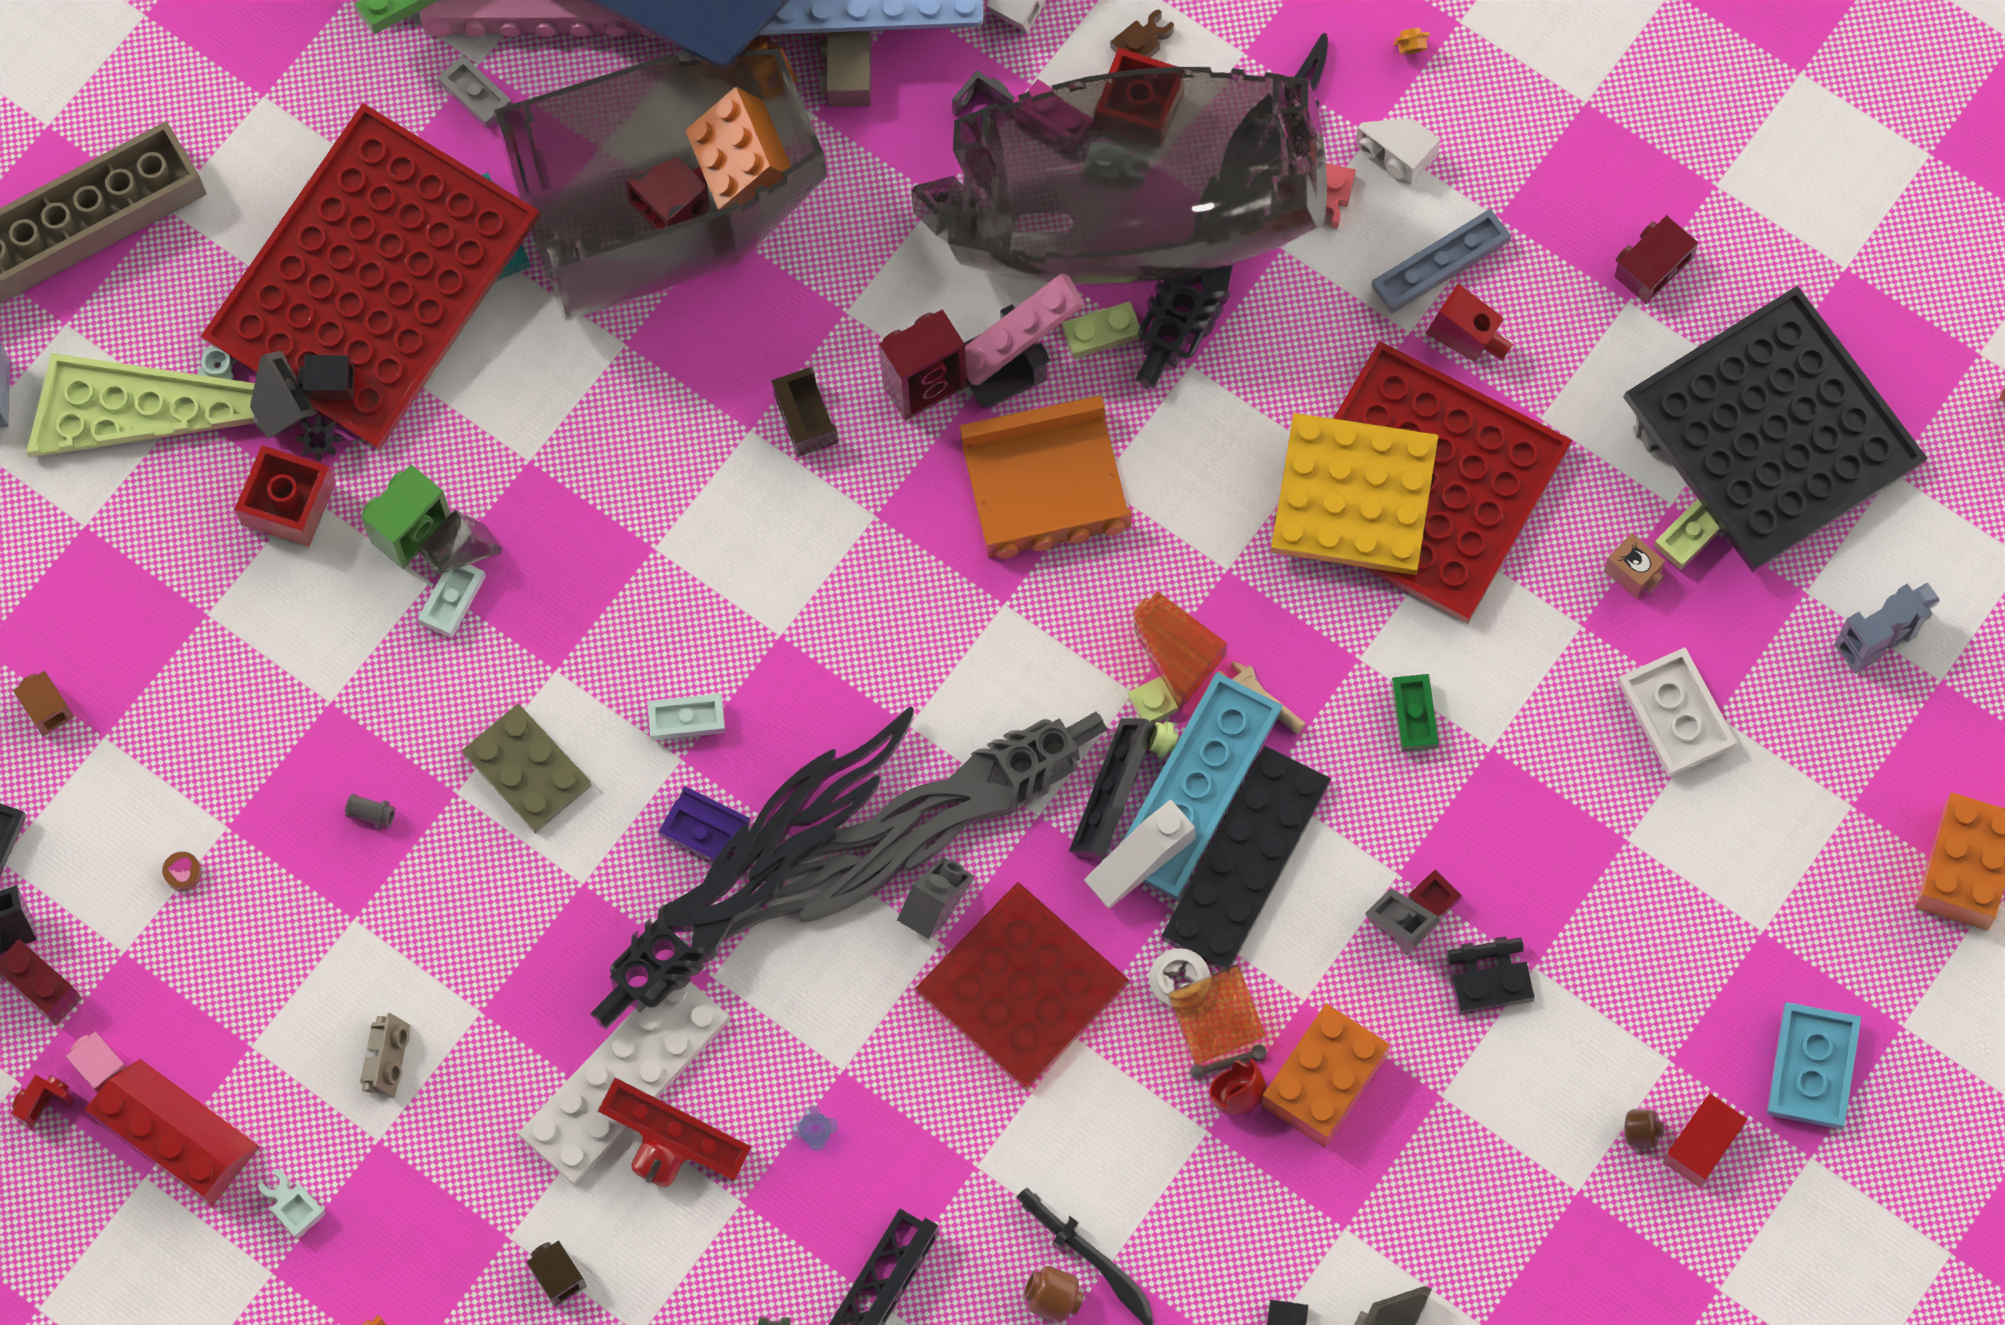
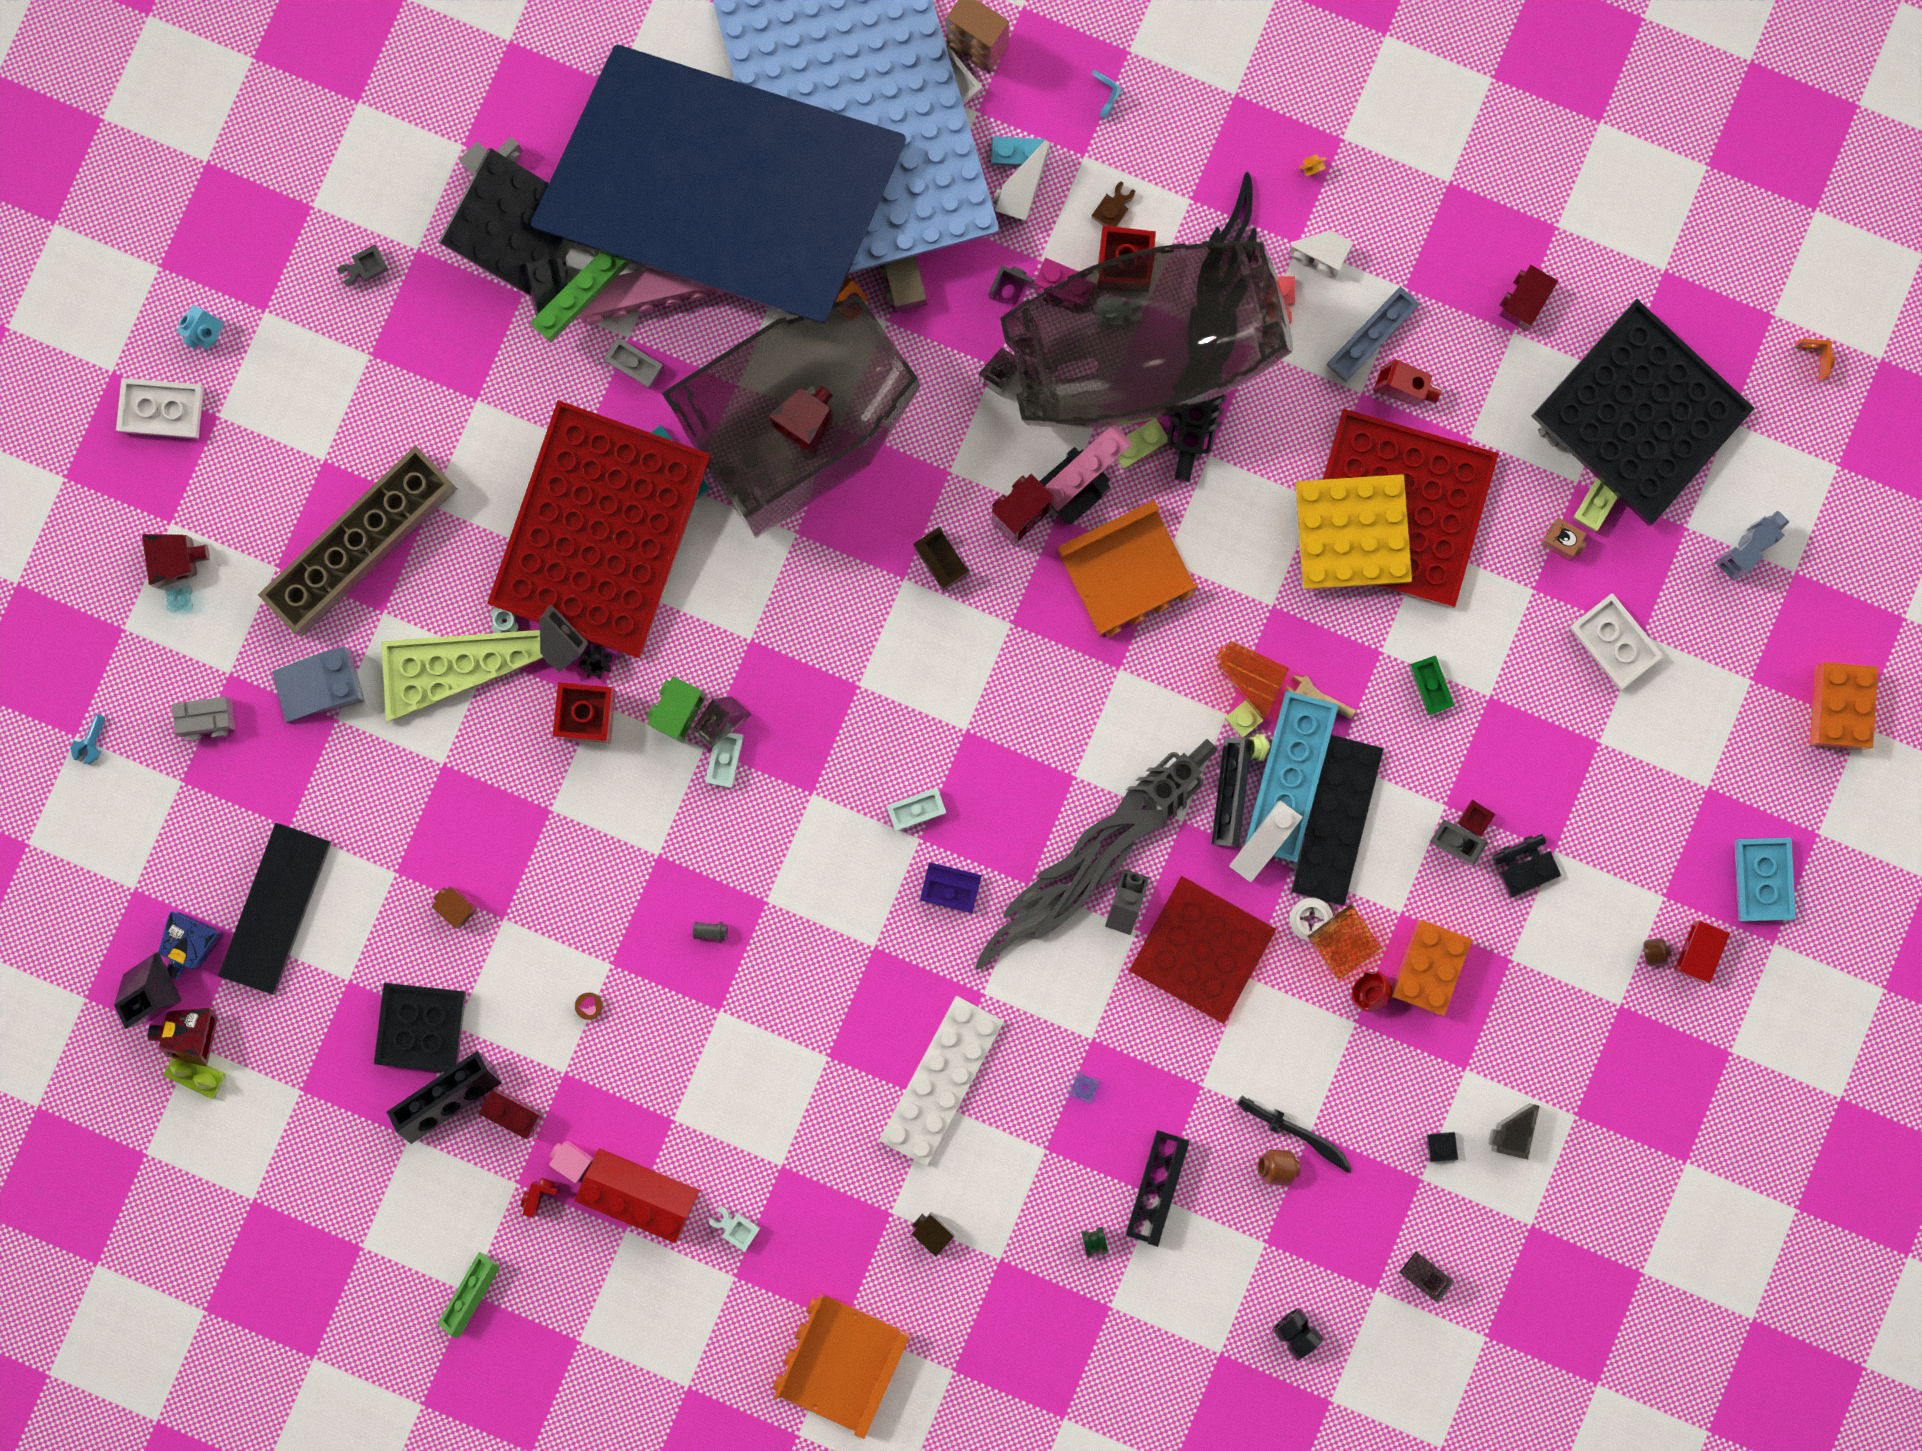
camera: 10 degrees left, 15 degrees up
(327, 377) = (590, 617): black brick -> none
(388, 1038) = (772, 1119): dark tan hinge -> none
(526, 768) = (812, 872): olive plate -> none
(670, 1135) = (987, 1120): red plate -> none
(737, 148) = (848, 379): orange brick -> none
(772, 857) = (977, 960): black piece -> none
(1258, 1053) = (1376, 959): dark grey hinge -> none

